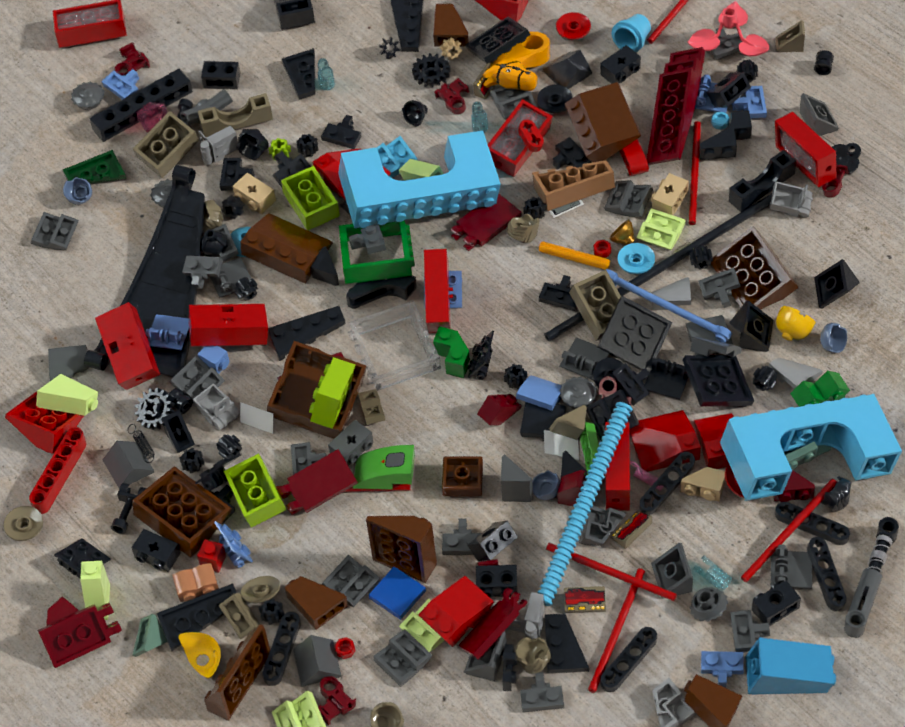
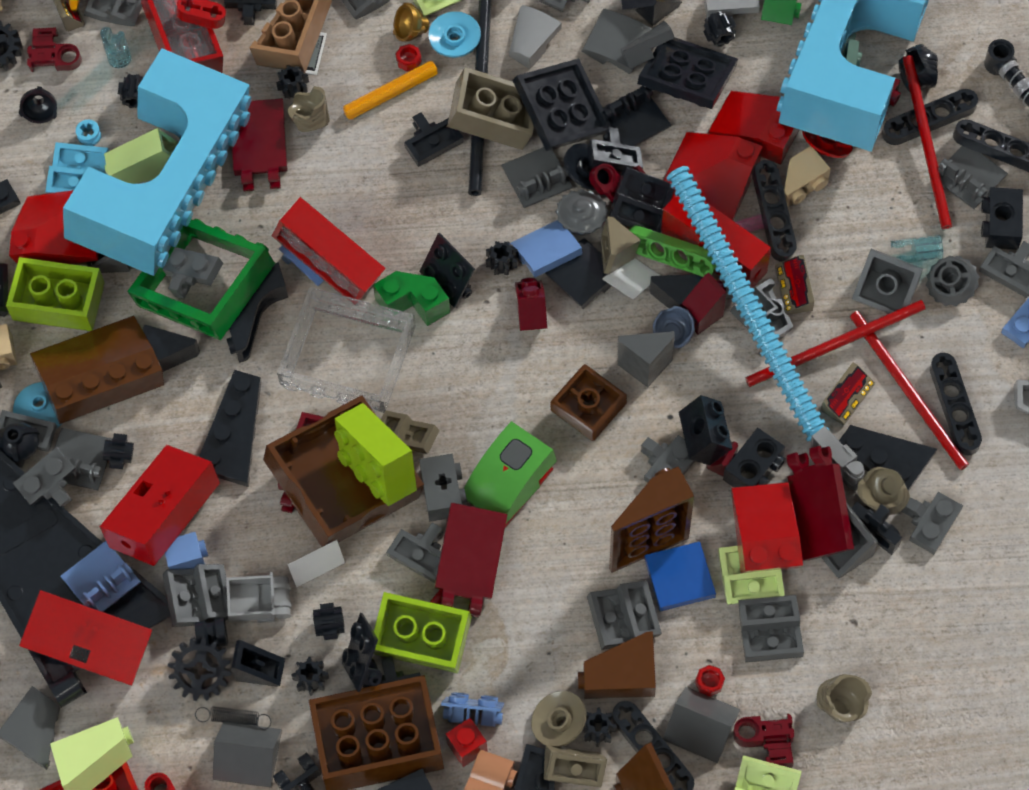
camera: 55 degrees left, 10 degrees up
(420, 150) = (87, 125): none -> medium azure bush
(722, 333) = (632, 24): medium blue hinge -> none

